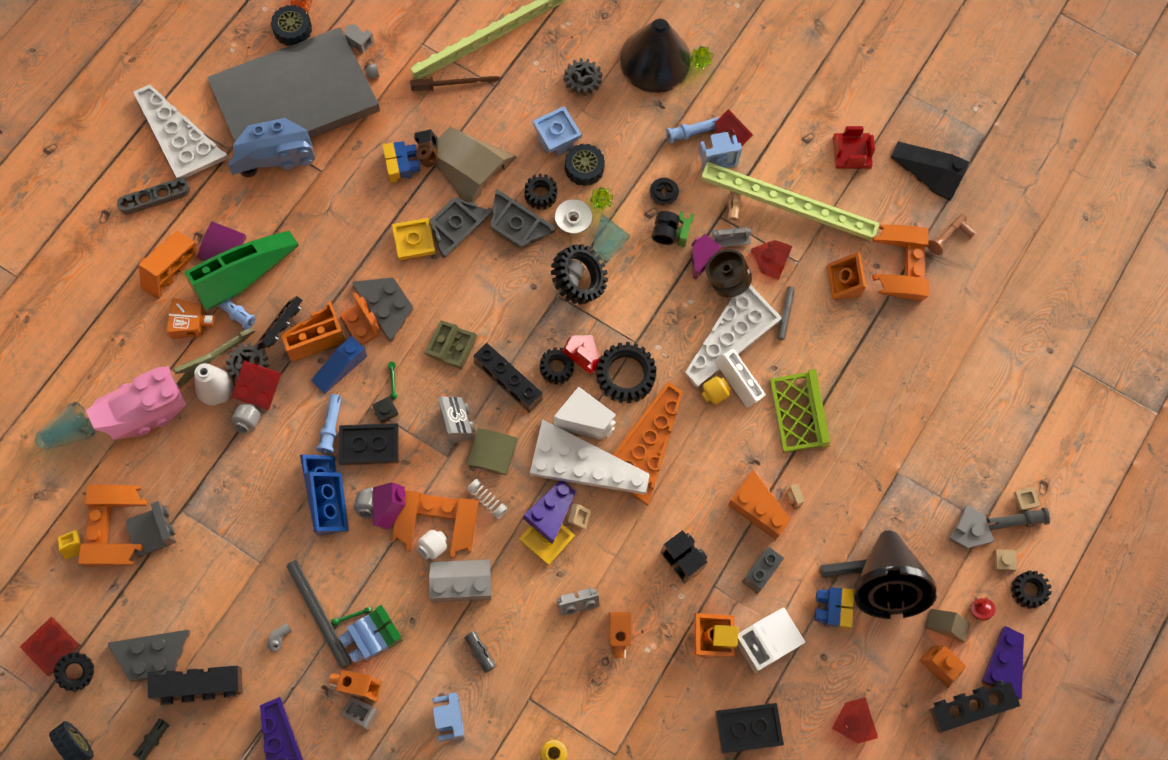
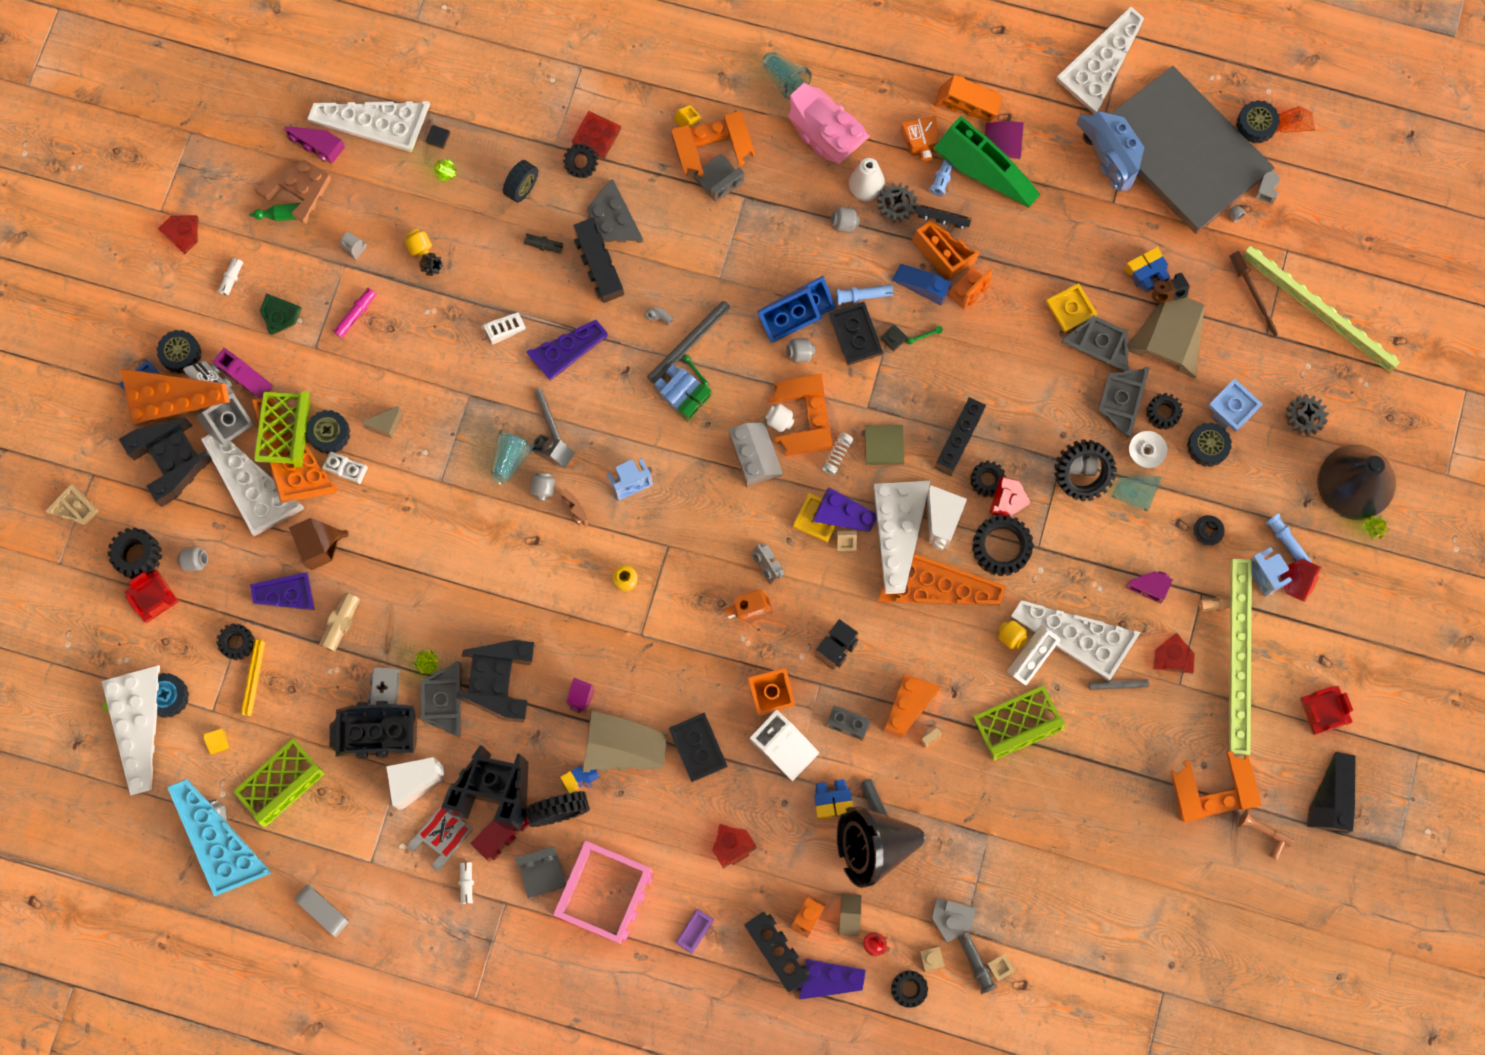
camera: 80 degrees right, 5 degrees up
(154, 199) = (1030, 65): dark grey beam -> none
(189, 367) = (885, 164): olive piece -> none
(256, 385) = (877, 217): red plate -> none
(356, 685) = (635, 393): orange torso -> none
(360, 713) = (613, 405): light grey slope -> none
(386, 302) = (998, 304): dark grey wing -> none
(387, 504) = (802, 366): magenta slope -> none
(451, 344) = (977, 376): olive slope -> none
(456, 419) = (902, 401): light grey slope -> none
(480, 651) = (696, 490): dark grey pin -> none
(601, 203) = (1177, 475): clear neon green gear -> none
(665, 227) = (1160, 541): black wheel -> none
(682, 233) = (1168, 560): bright green plate -> none
(725, 636) = (772, 699): yellow slope -> none
(729, 273) = (1137, 613): dark brown wheel -> none
(732, 236) = (1182, 609): light grey hinge -> none
(846, 277) = (1177, 734): orange slope -> none

